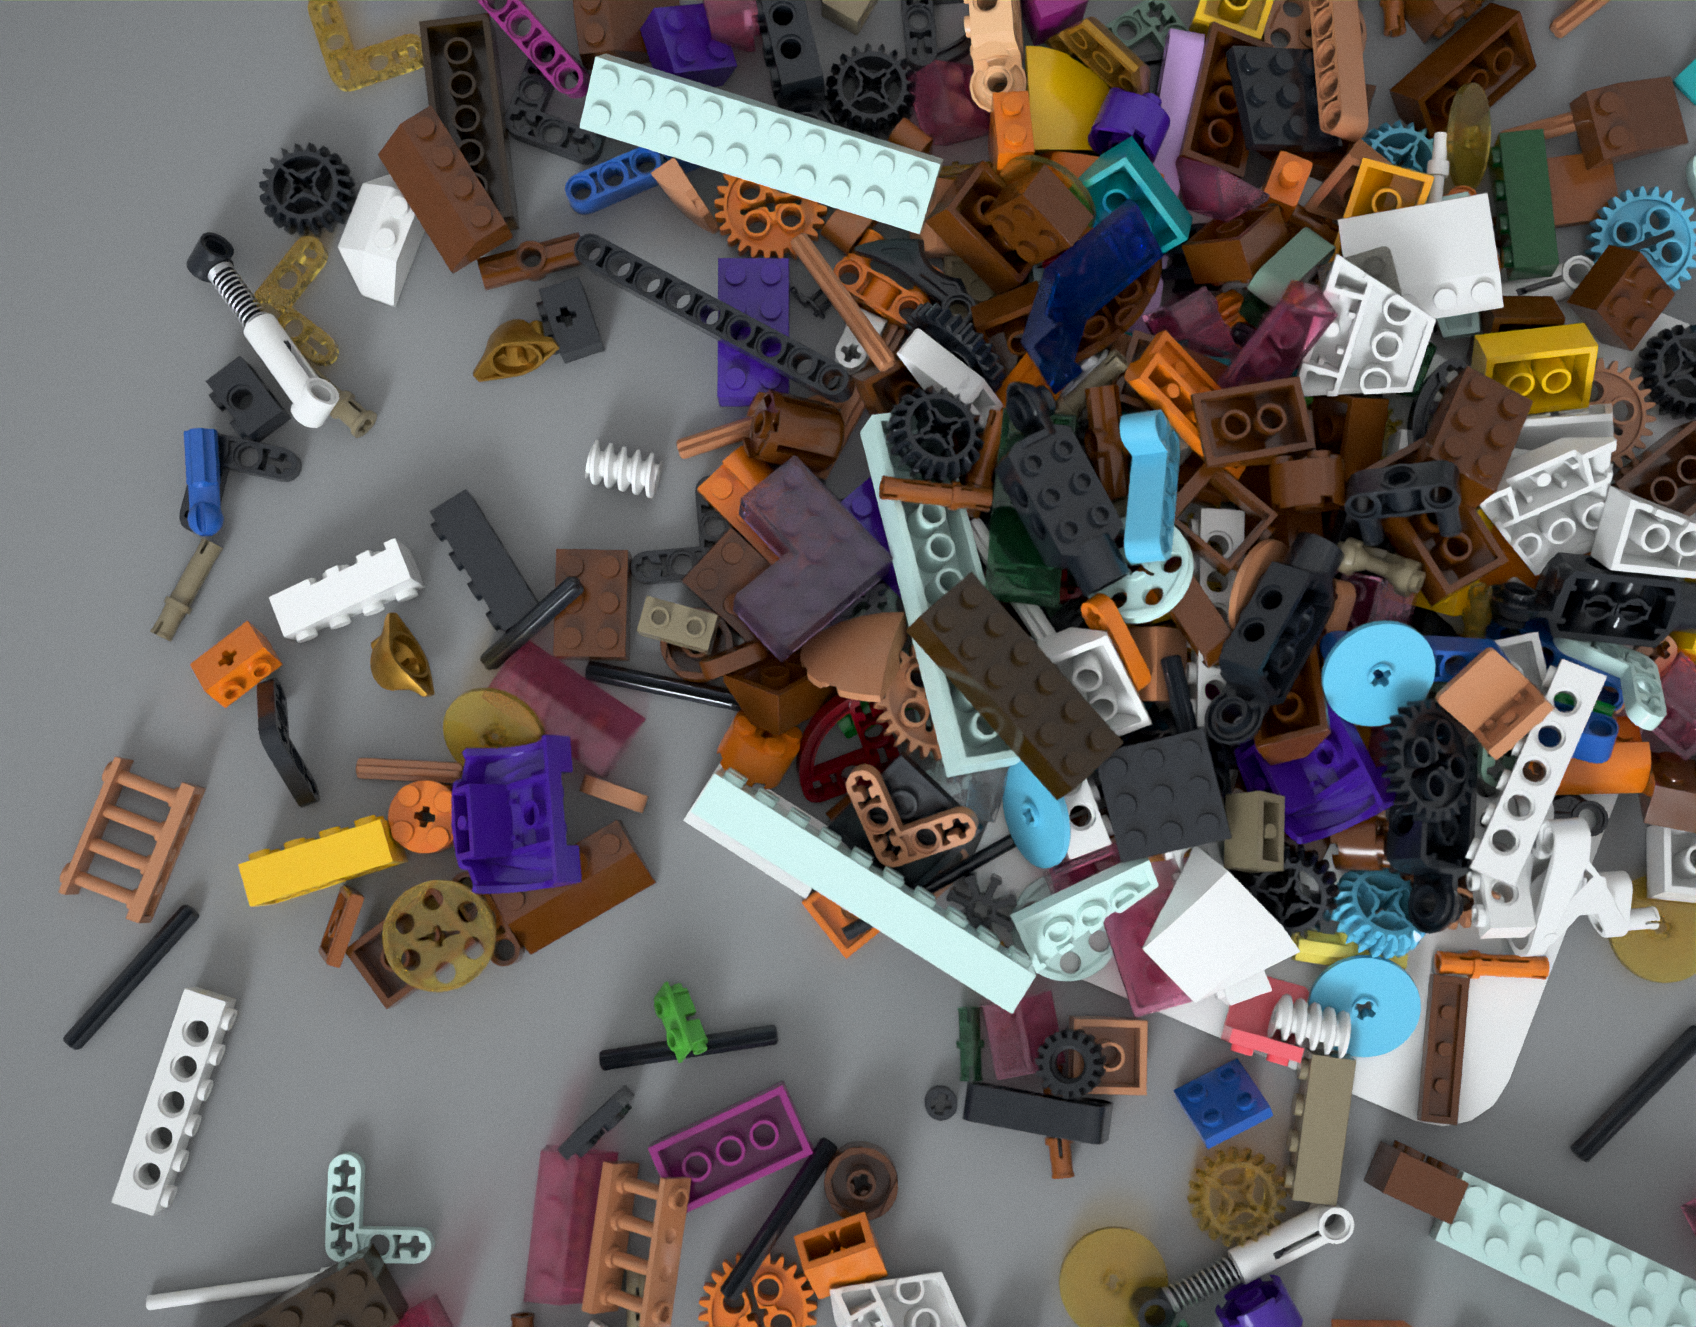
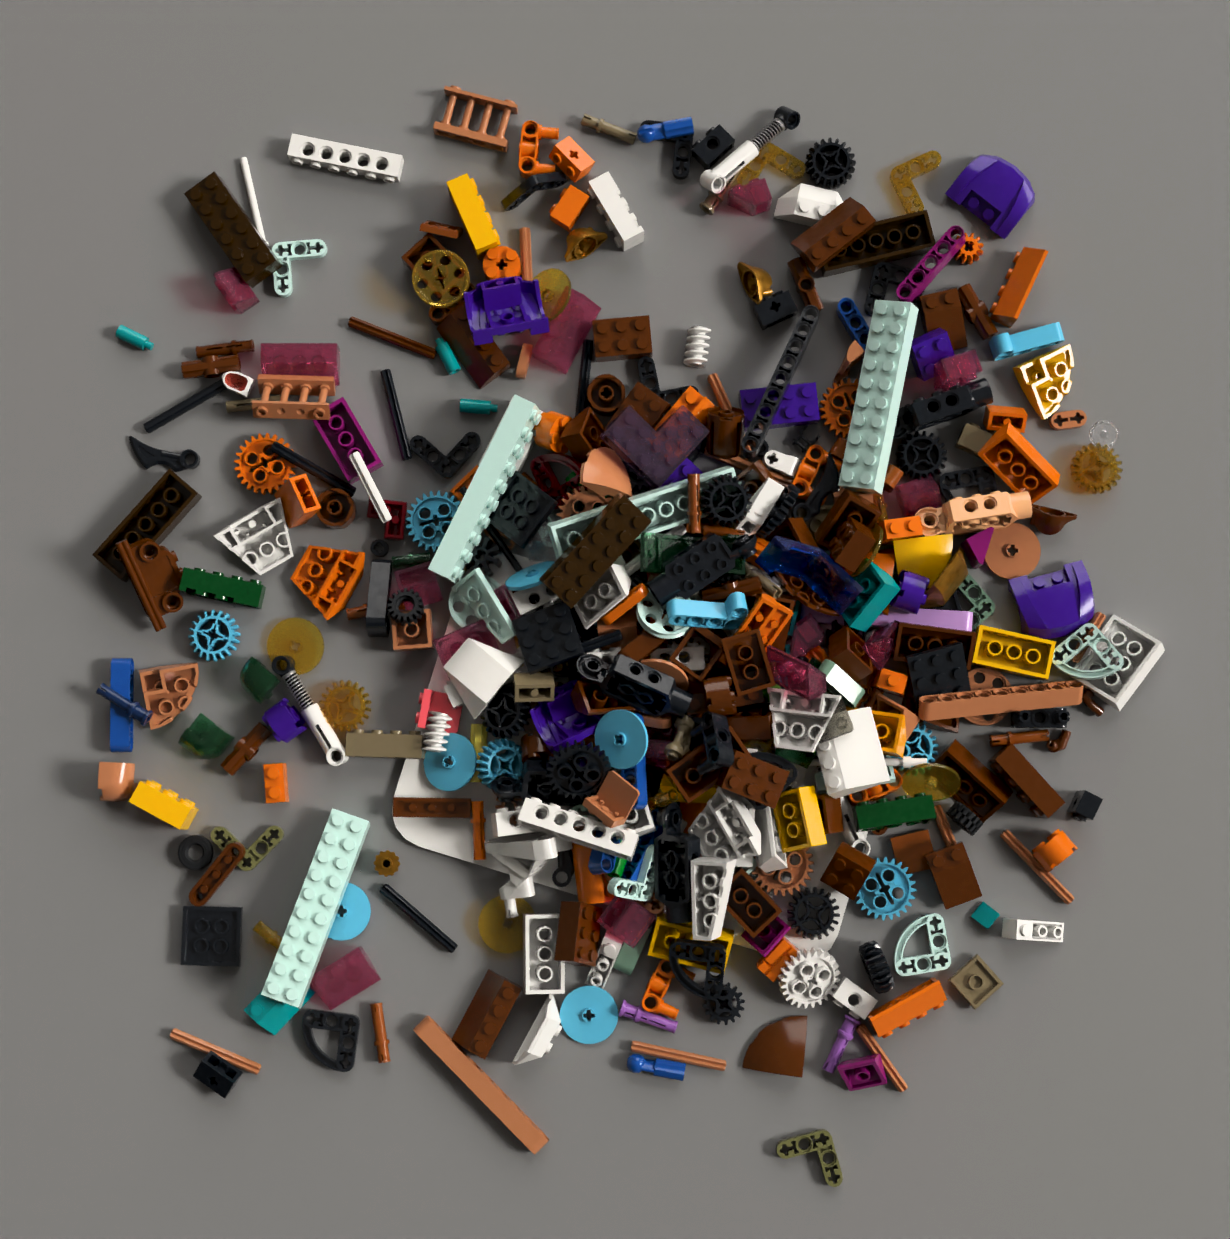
camera: 90 degrees right, 0 degrees up
(131, 977) = (405, 128): black axle -> none
(206, 742) = (530, 148): none -> orange piece
(328, 678) = (569, 207): none -> orange brick
(355, 337) = (750, 198): none -> clear pink slope
(484, 559) = (639, 281): black brick -> none
(532, 623) = (608, 307): black axle -> none
(538, 1041) = (392, 337): none -> reddish brown axle
(588, 939) = (447, 356): none -> teal cylinder
(591, 1130) = (350, 367): black plate -> none
(673, 1006) = (402, 409): bright green hinge -> none
(678, 625) = (613, 381): dark tan brick -> none
(690, 890) = (477, 406): none -> teal cylinder
(733, 659) = (598, 411): reddish brown beam -> none
(784, 967) = (442, 459): none -> black beam
(829, 1111) = (370, 487): none -> white axle
(843, 302) = (797, 449): nougat axle -> none
(870, 992) = (433, 504): none -> medium azure gear
(879, 1069) = (395, 527): none -> dark red brick
(906, 834) = (515, 507): nougat beam -> none
(991, 1207) = (329, 577): none -> orange wedge
(1223, 1103) = (392, 692): blue plate -> none
(1419, 1183) = (362, 797): reddish brown brick -> none
(1533, 88) = (964, 818): none -> black tyre
(1550, 1148) = (394, 863): none -> pearl gold piece
(1629, 1210) = (357, 914): none -> medium azure piece

